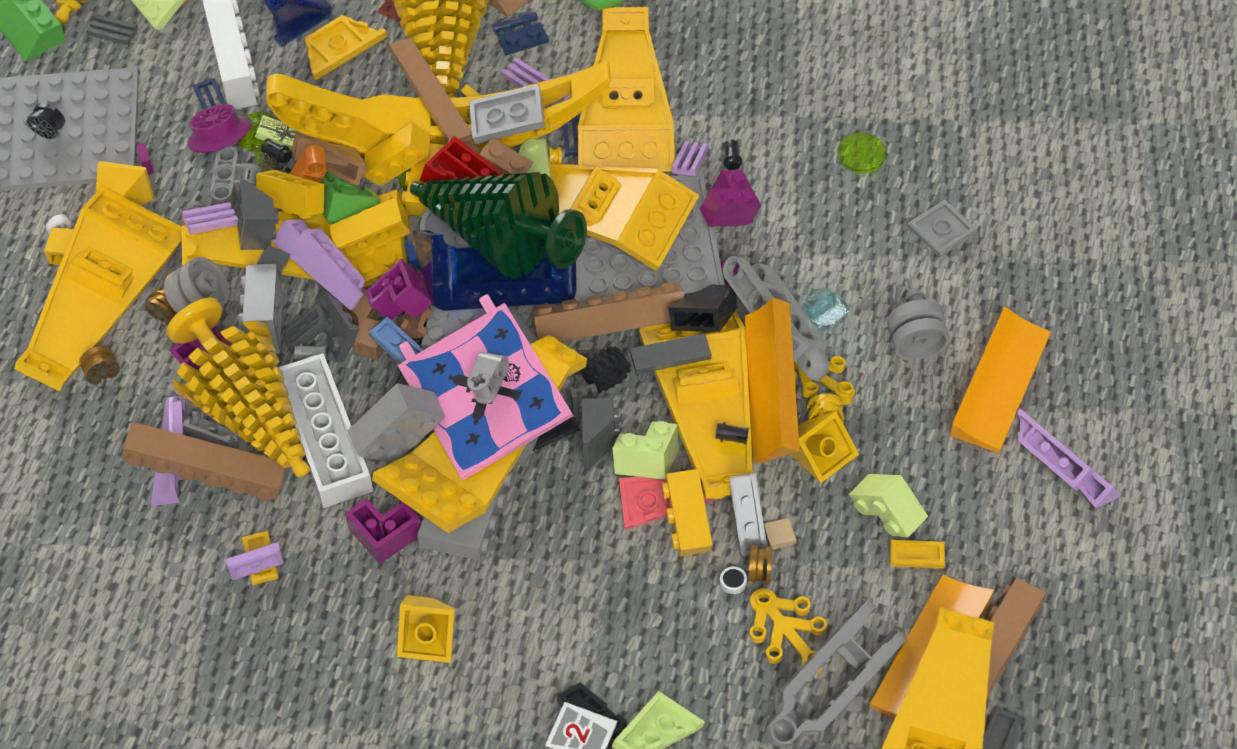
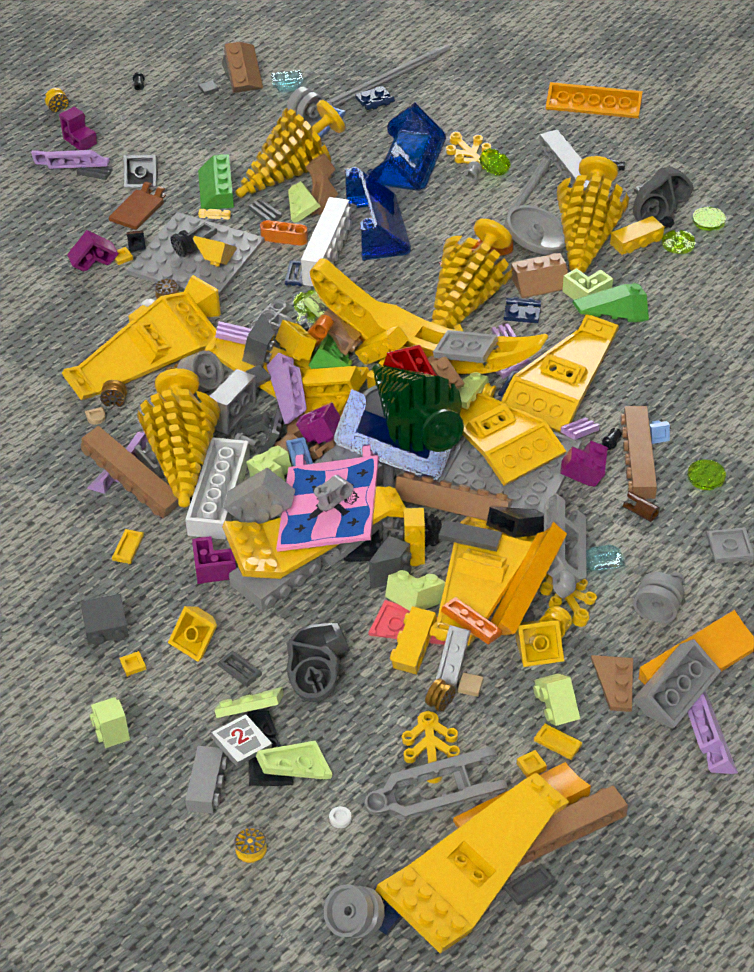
camera: 30 degrees right, 10 degrees down
(48, 60) = (214, 214): none -> yellow axle
(58, 94) = (204, 231): none -> dark grey tile
(65, 186) = (166, 287): none -> pearl gold wheel
(93, 404) = (95, 416): none -> tan tile
(94, 114) = (214, 251): none -> yellow slope
(144, 157) = (228, 290): magenta tile -> none
(160, 50) = (284, 232): none -> orange beam
(217, 128) = (283, 288): magenta wheel -> none
(254, 561) = (119, 543): lavender tile -> none
(280, 153) = (310, 315): black pin -> none
(308, 669) = (104, 619): none -> dark grey slope
(339, 43) = (398, 271): yellow wing -> none
(367, 374) = (274, 459): none -> yellowish green brick
(375, 705) = (132, 663): none -> yellow tile
(430, 90) = (428, 314): medium nougat tile -> none
(481, 651) = (250, 678): none -> dark grey tile
(554, 683) = (249, 702): none -> yellowish green wing
(595, 597) = (315, 660): none -> dark grey piece
(609, 378) = (415, 534): none -> yellow brick
(732, 433) = (471, 599): black pin -> none
(733, 580) = (416, 698): tile -> none
(741, 458) = (471, 620): none -> orange tile
(775, 159) = (639, 452): none -> medium nougat brick
(779, 122) = (659, 431): none -> light blue tile
(825, 226) = (642, 508): none -> reddish brown hinge
(909, 596) = (531, 763): none -> yellow plate
(931, 450) = (616, 680): none -> medium nougat wing
(1004, 424) = (677, 684): none -> light grey slope

